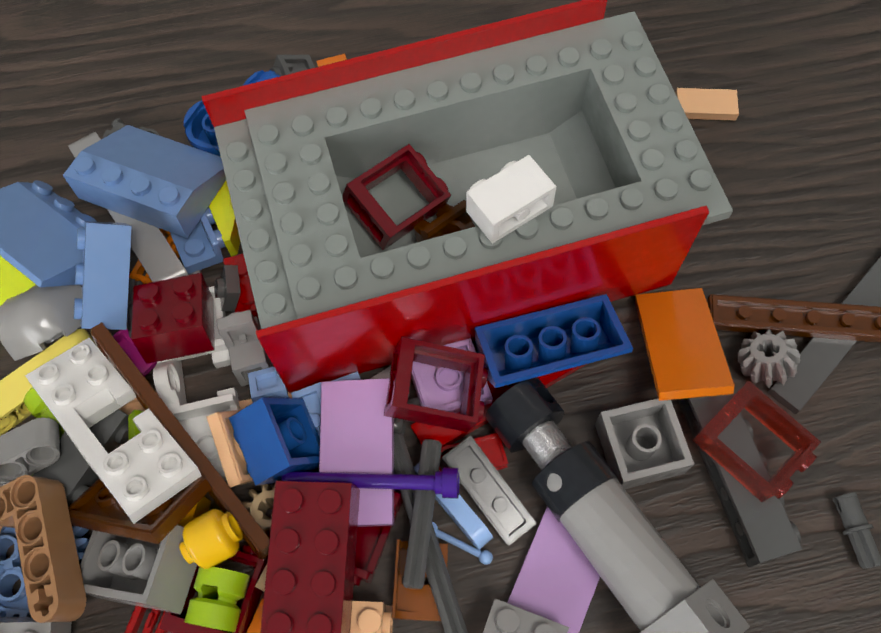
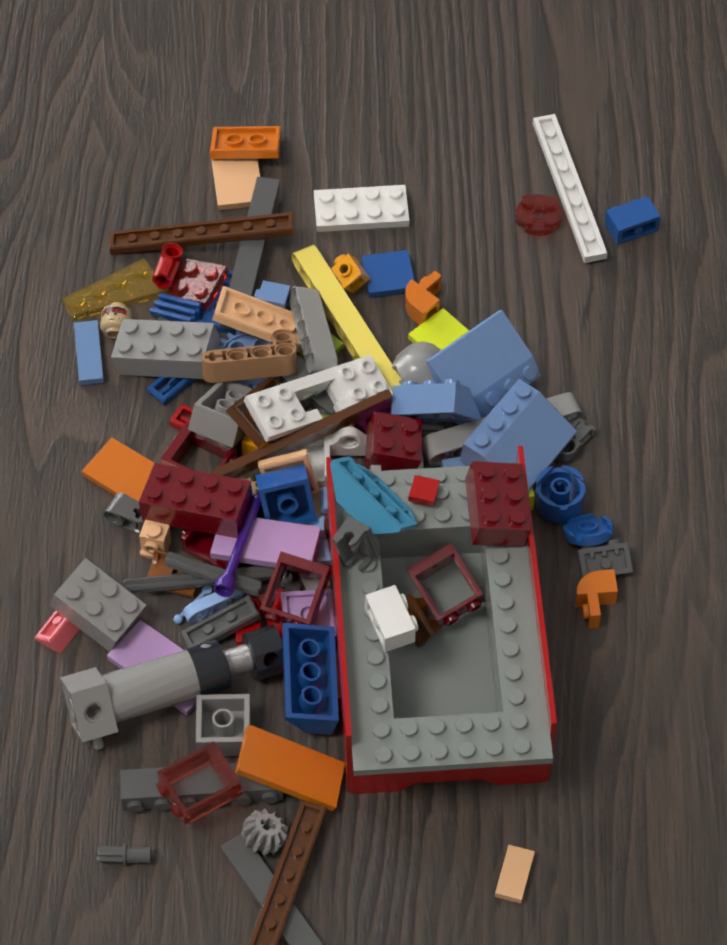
camera: 100 degrees right, 10 degrees down
(210, 539) = (224, 443): yellow head -> none
(220, 613) = (188, 447): lime wheel -> none
(288, 205) = (424, 490): none -> red tile
(300, 107) = (497, 504): none -> dark red brick
(331, 253) = (369, 498): none -> dark azure wedge
(404, 259) = (355, 541): none -> dark grey hinge

